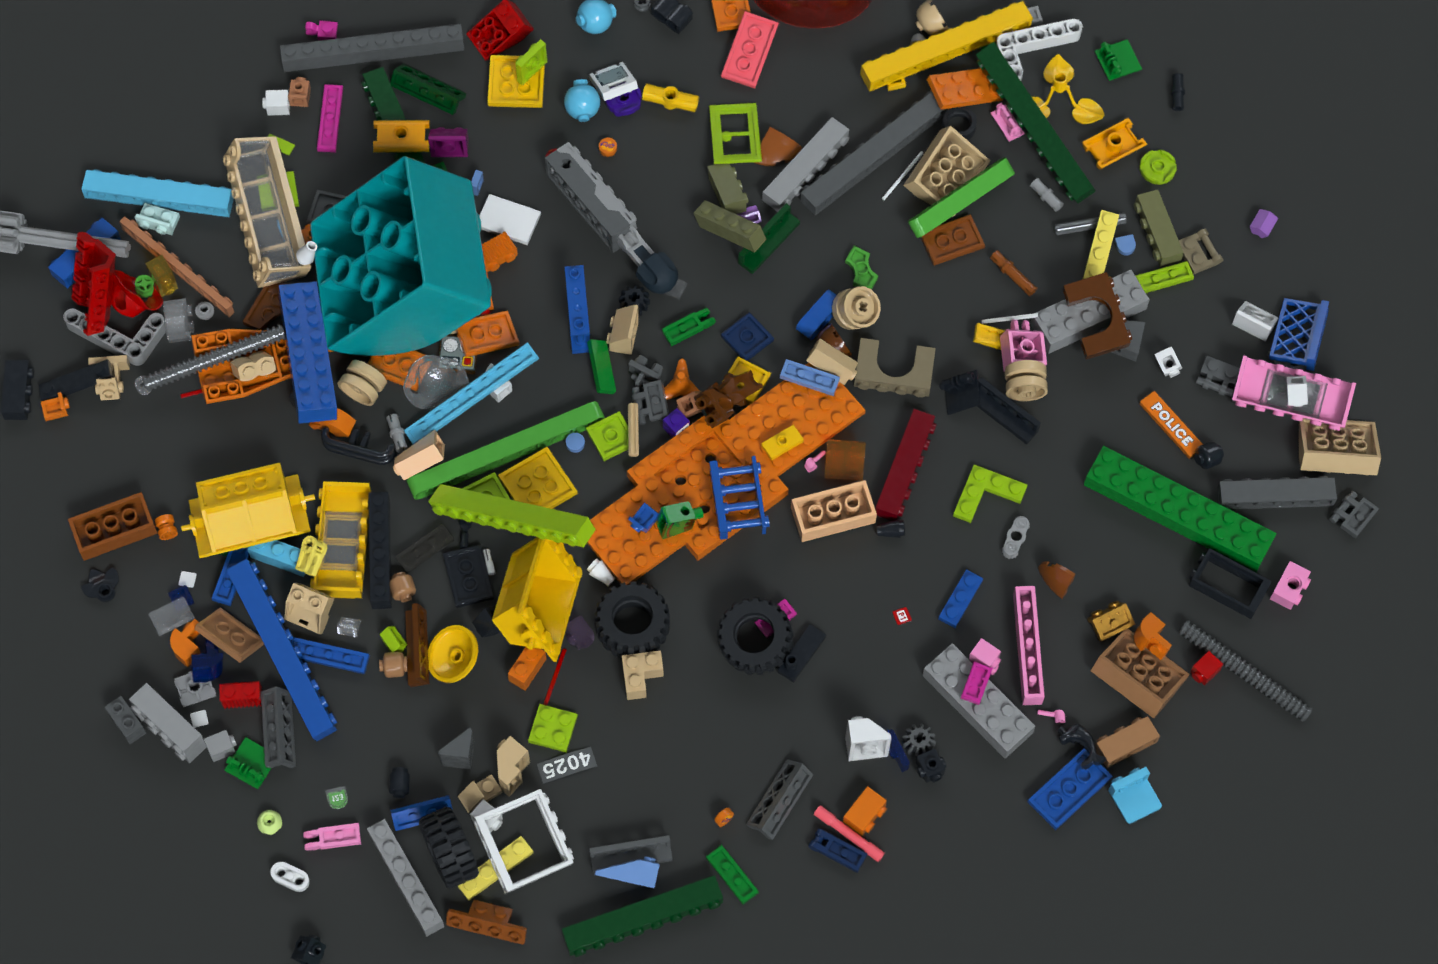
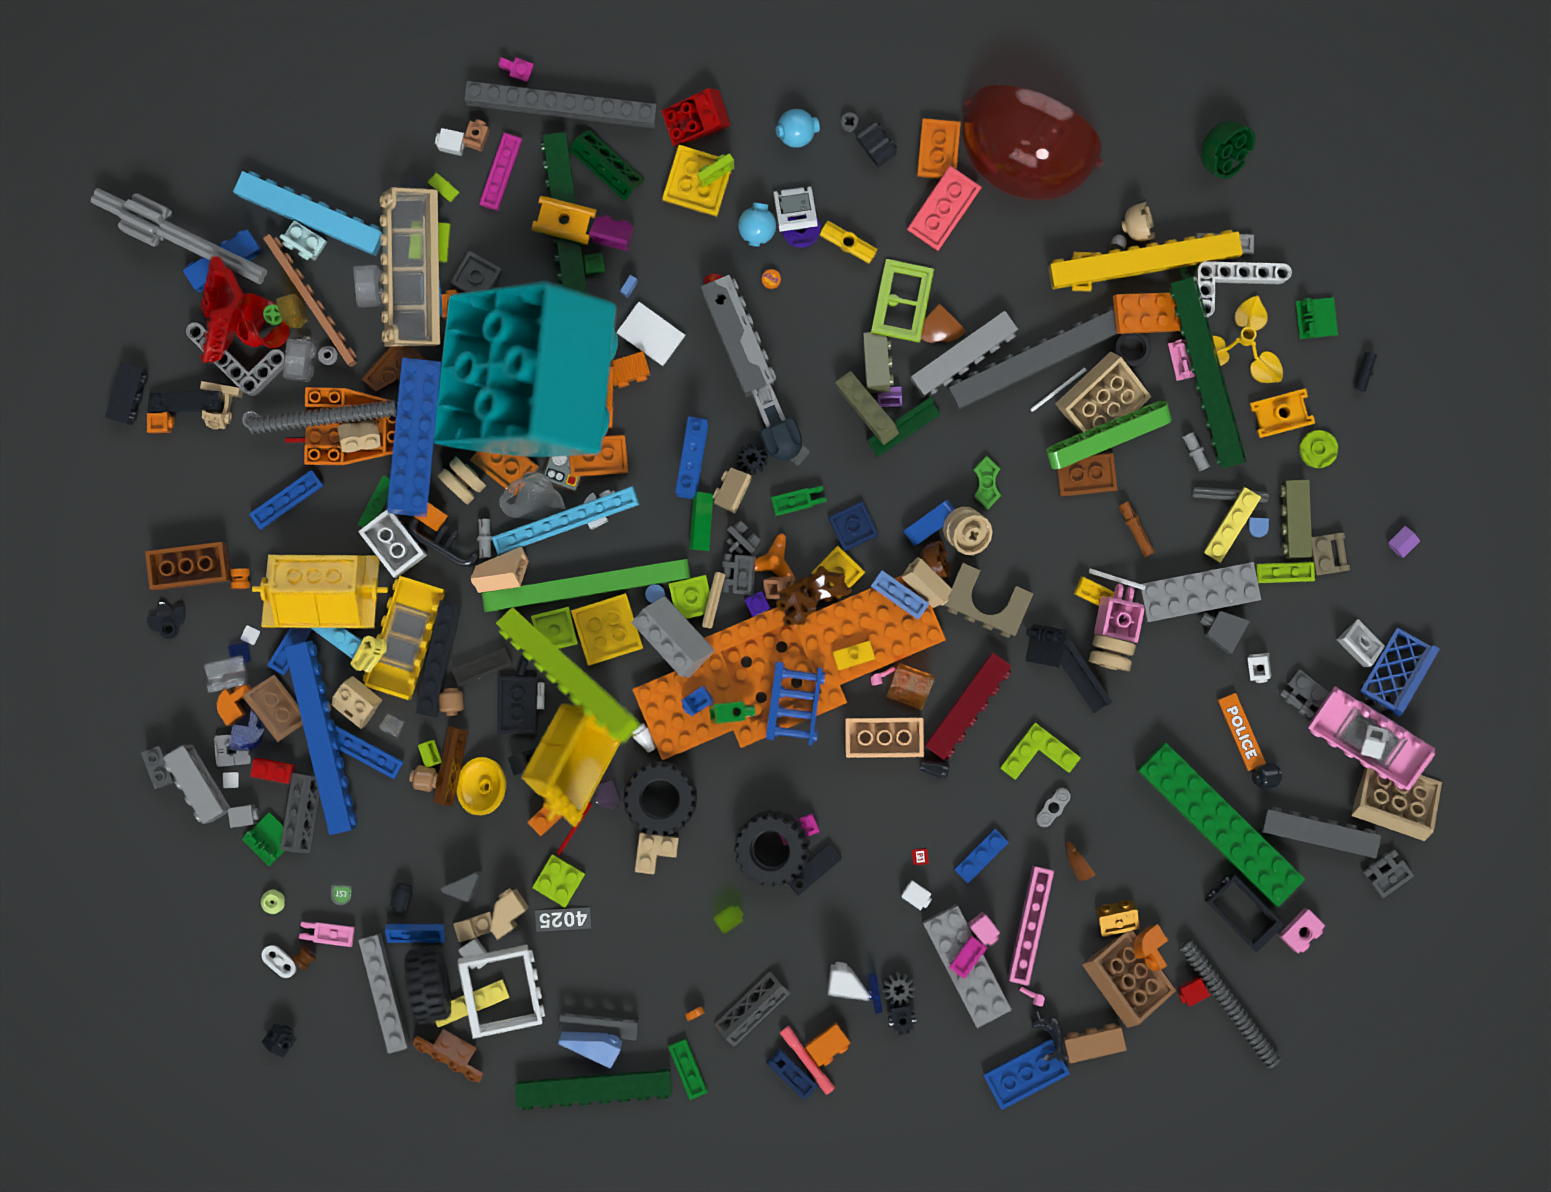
camera: 15 degrees right, 20 degrees up
(195, 446) = (286, 500): none -> blue plate
(229, 241) = (368, 286): none -> clear brick
(283, 430) = (376, 503): none -> green piece
(306, 254) = (433, 334): white cone -> none
(309, 456) = (392, 543): none -> white brick
(314, 866) = (303, 958): none -> reddish brown wheel
(604, 469) = (673, 636): none -> light grey slope
(731, 717) = (729, 918): none -> clear neon green brick
(909, 648) = (916, 895): none -> white brick
(1100, 289) = (1215, 631): reddish brown arch -> none
(1134, 795) = (1085, 1098): medium azure bracket -> none

